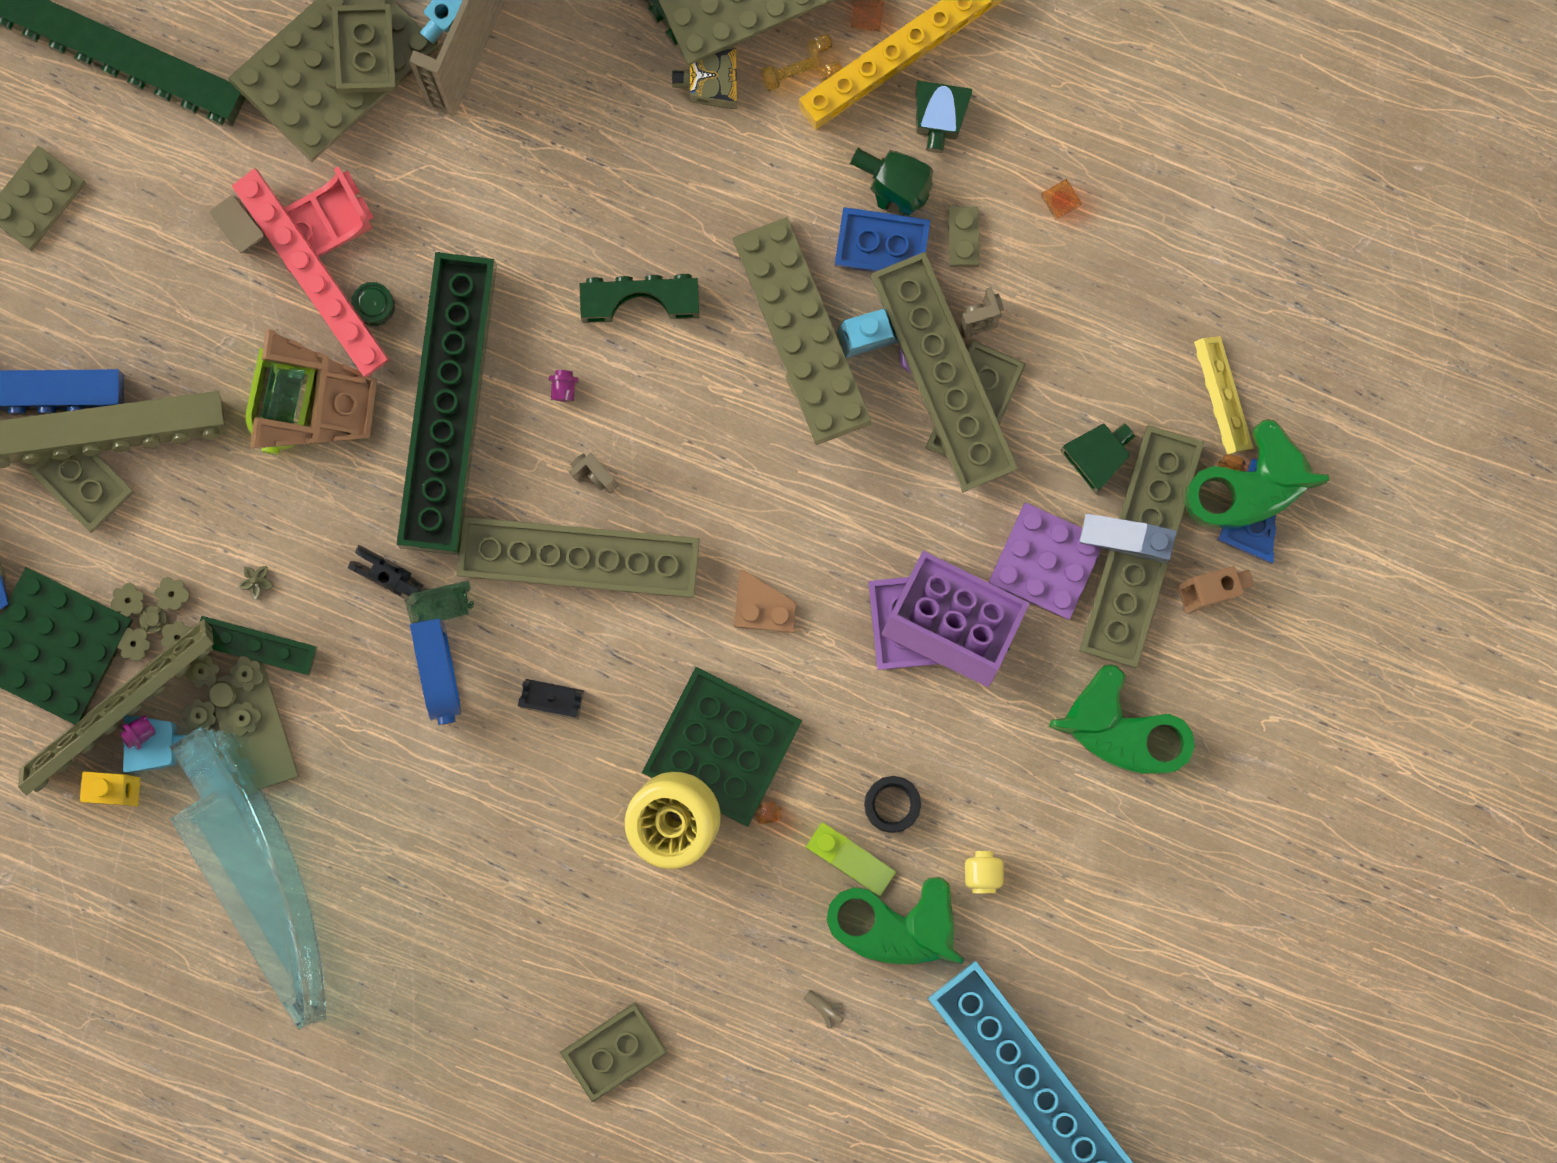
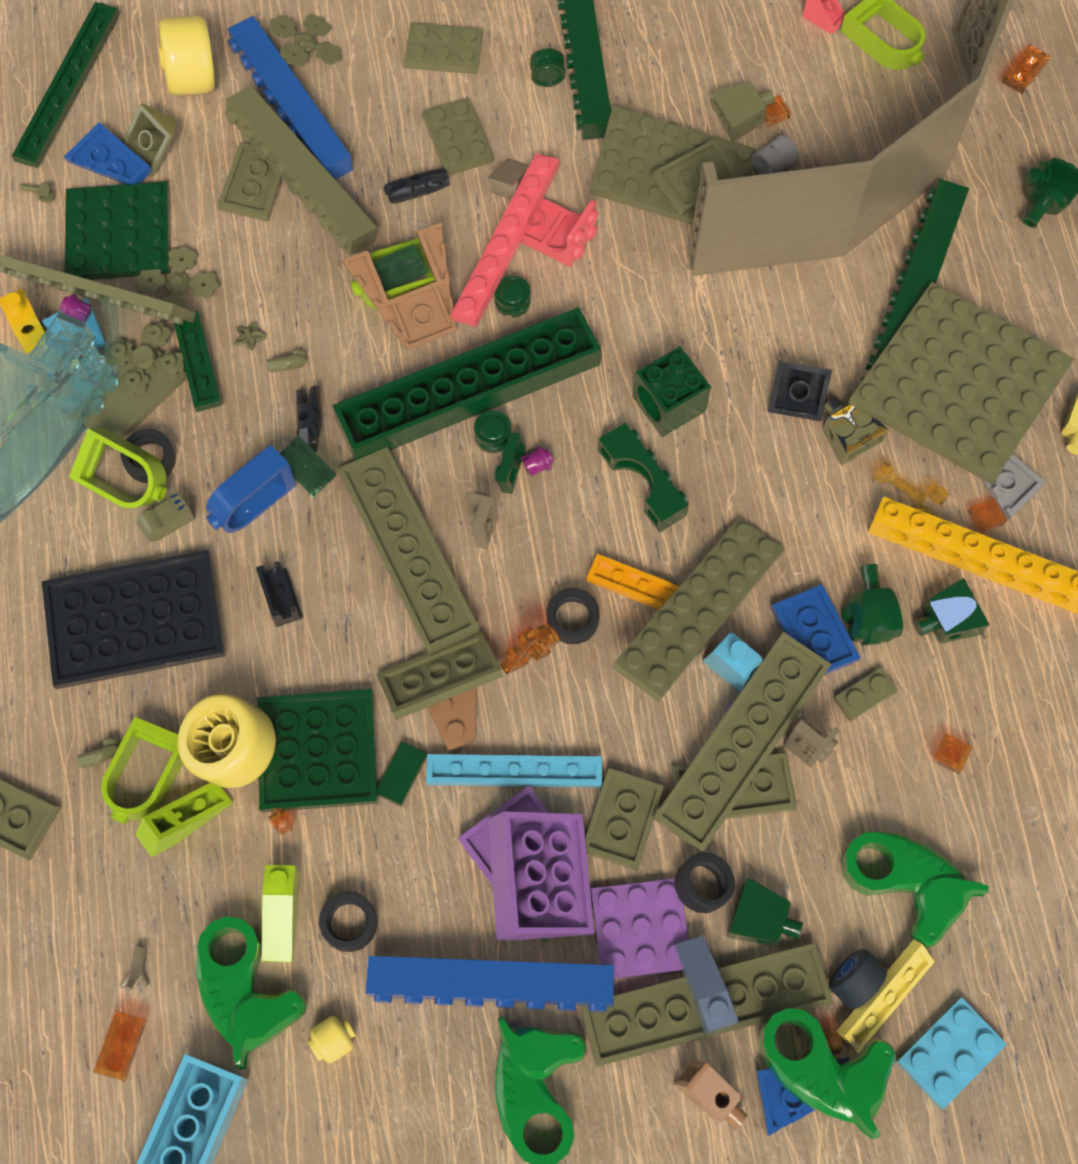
camera: 60 degrees right, 15 degrees down
(132, 110) = (547, 67): none -> dark green wheel
(152, 248) = (457, 136): none -> olive plate
(188, 323) = (416, 185): none -> black hinge
(309, 742) = (145, 437): none -> black tyre
(311, 562) = (296, 360): none -> olive arm
(321, 815) = (89, 458): none -> lime window
(408, 762) = (165, 518): none -> olive leg
(493, 845) = (132, 619): none -> black plate
(506, 409) = (491, 431): none -> dark green wheel
(541, 404) = (508, 471): none -> dark green plate
(574, 220) = (671, 391): none -> dark green brick
(610, 941) = (99, 755): none -> olive arm
(625, 881) = (157, 736): none -> lime window
(644, 101) = (799, 390): none -> black slope
(714, 898) = (181, 818): none -> lime slope
(721, 599) = (439, 675): none -> olive plate
(737, 374) = (630, 582): none -> light orange plate
(739, 425) = (579, 596): none -> black tyre
(744, 498) = (531, 644): none -> clear orange plate
(788, 684) = (401, 774): none -> dark green tile
(846, 585) = (514, 770): none -> medium azure plate
(882, 1052) = (120, 1046): none -> clear orange plate
(945, 517) = (623, 819): none -> olive plate
(1018, 712) = (491, 981): none -> blue brick
(1049, 464) = (690, 897): none -> black tyre
(1156, 291) = (914, 868): none -> green animal
(1197, 409) = (858, 978): none -> black wheel
(1298, 372) = (951, 1053): none -> medium azure plate

